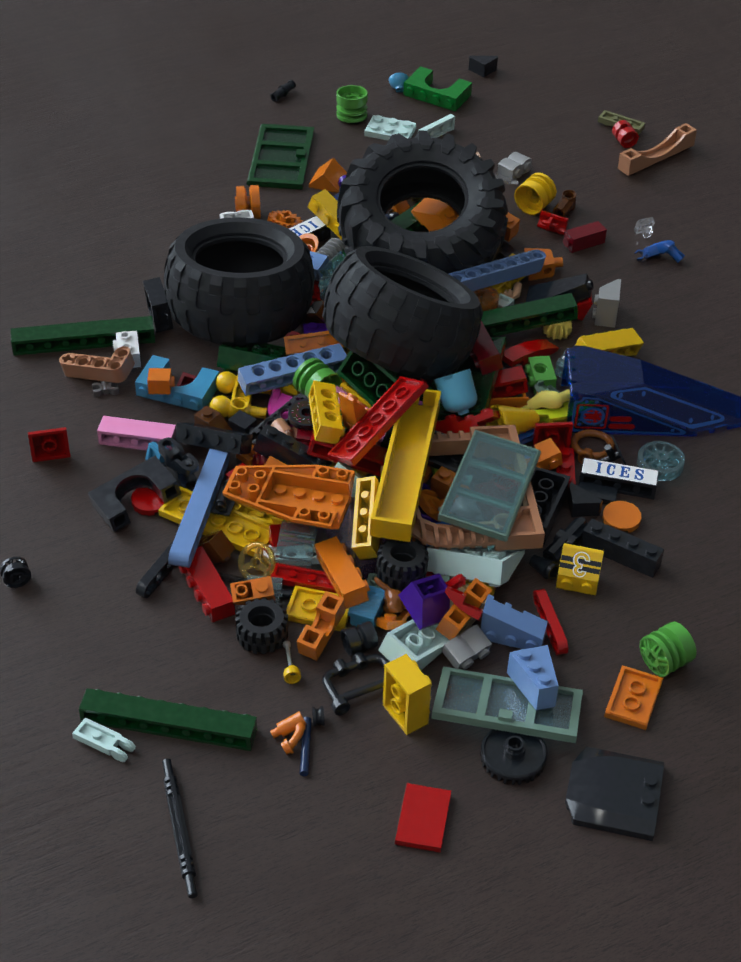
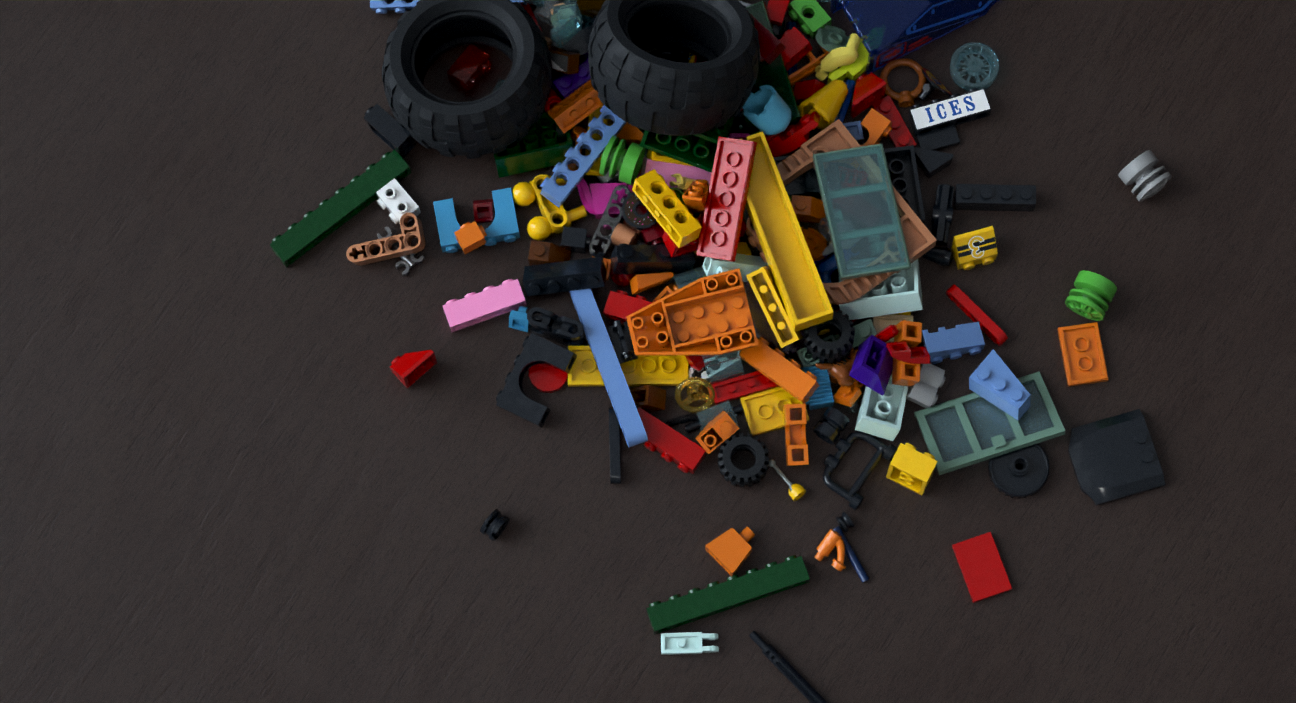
camera: 25 degrees left, 30 degrees up
(199, 685) = (731, 549): none -> orange torso
(622, 516) = (973, 156): orange tile -> none

